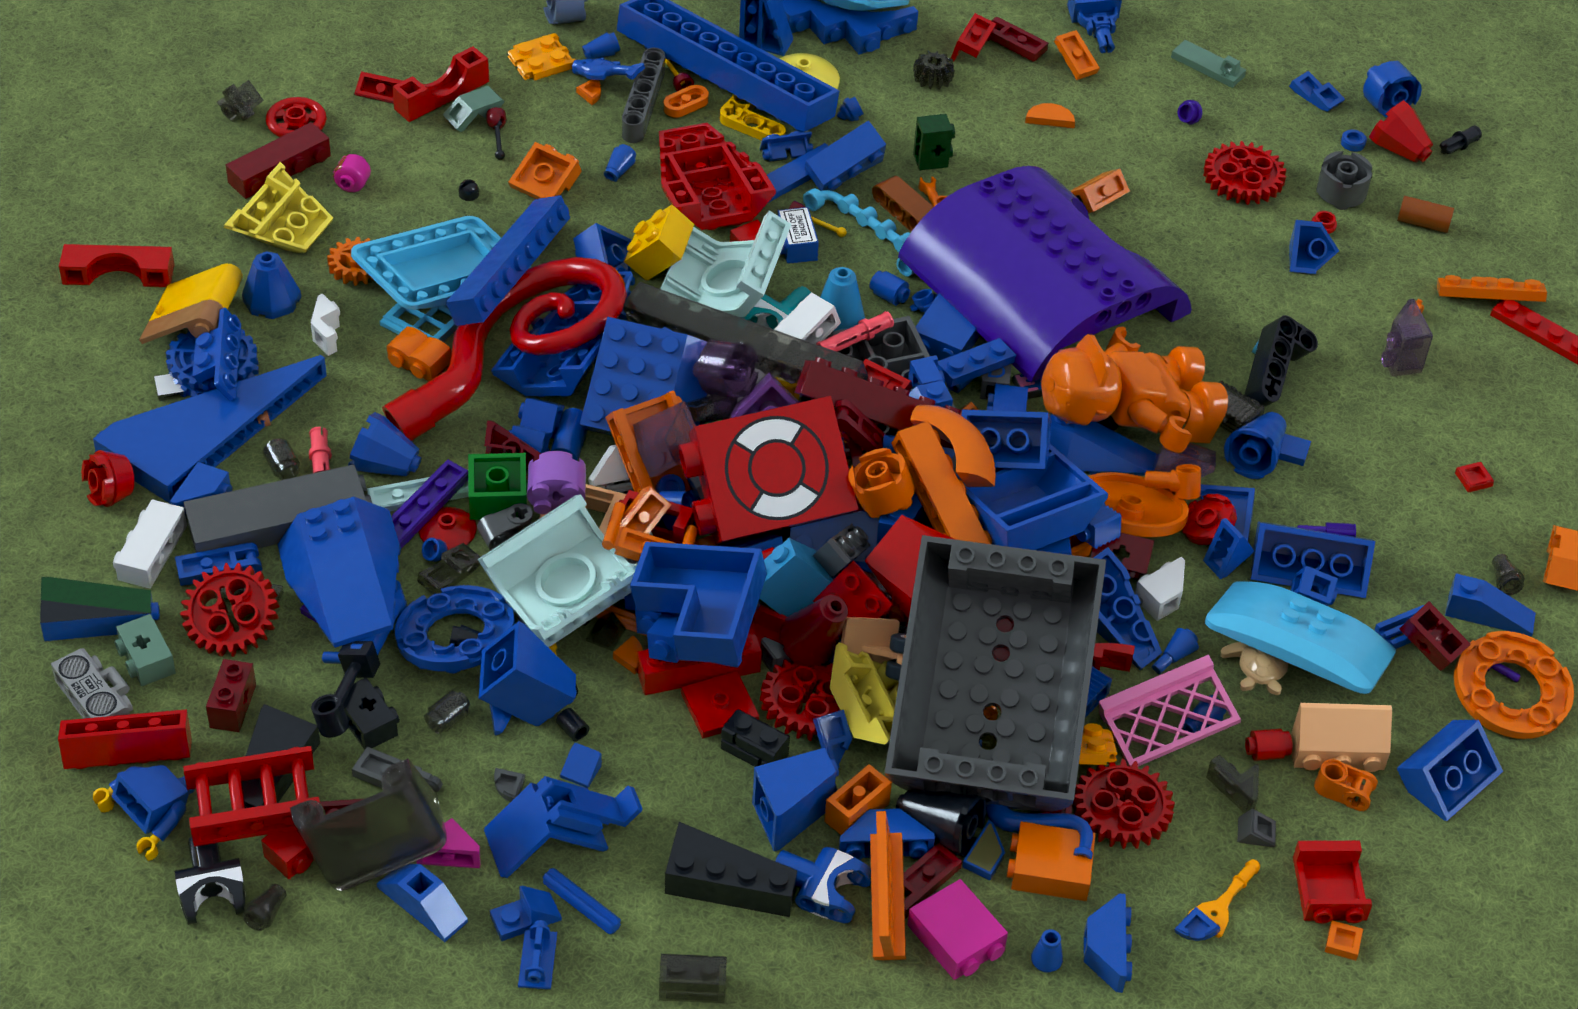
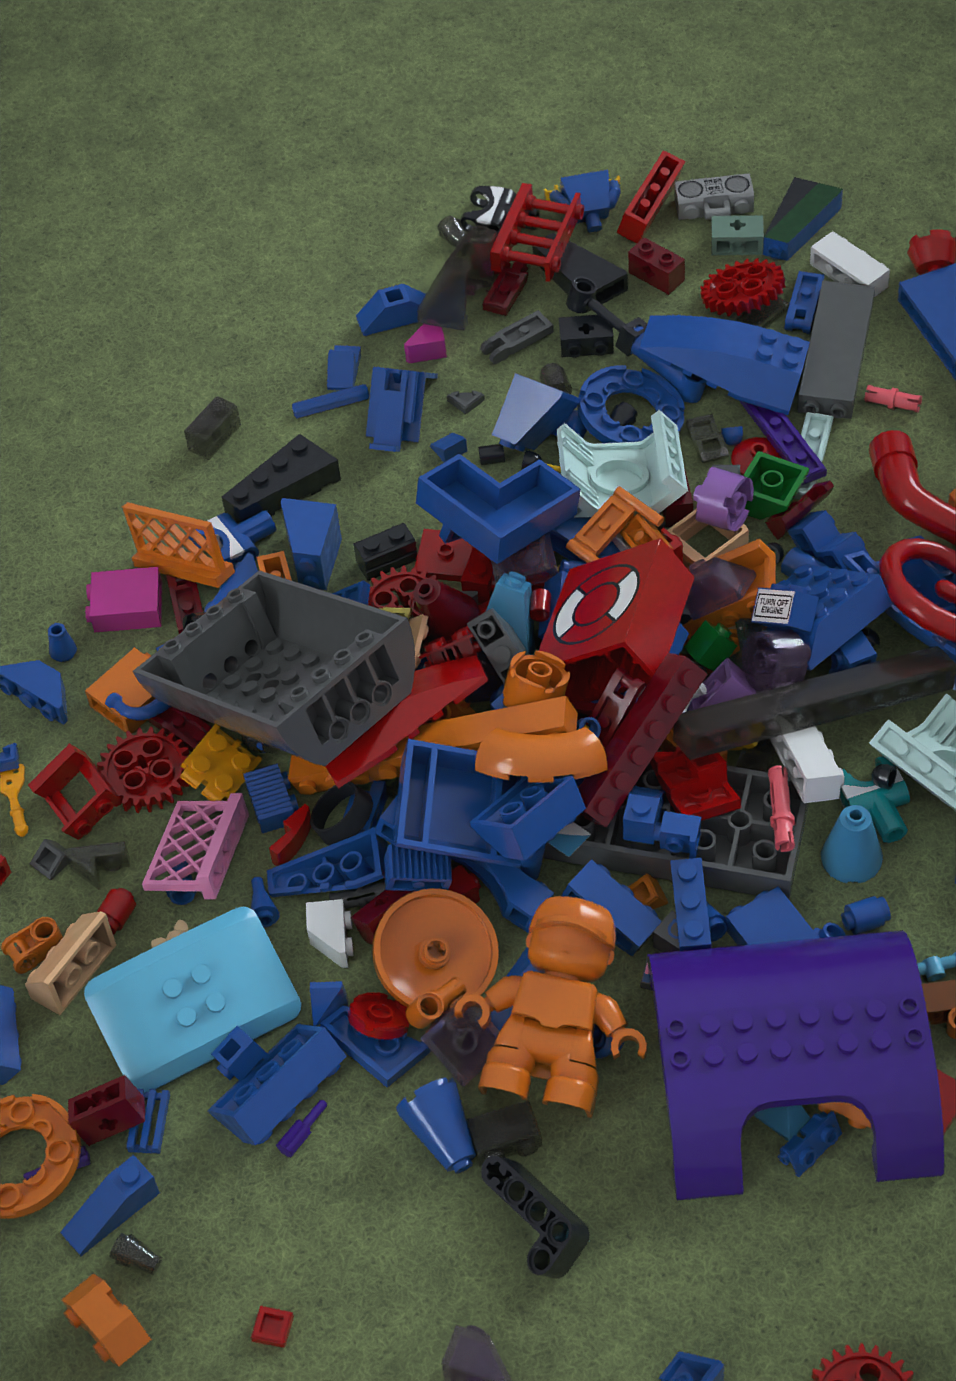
camera: 130 degrees right, 5 degrees up
(201, 483) = (892, 311): blue slope -> none
(281, 459) = (901, 371): clear smoke brick -> none
(384, 449) = (860, 426): blue cone -> none
(537, 957) = (301, 358): blue hinge -> none
(682, 366) = (785, 608): none -> brick
(770, 300) = (884, 776): none -> black hinge
(1102, 190) = (919, 1216): orange panel -> none
(1192, 859) = (58, 774): none -> red panel
(1294, 450) = (421, 1168): blue tile -> none

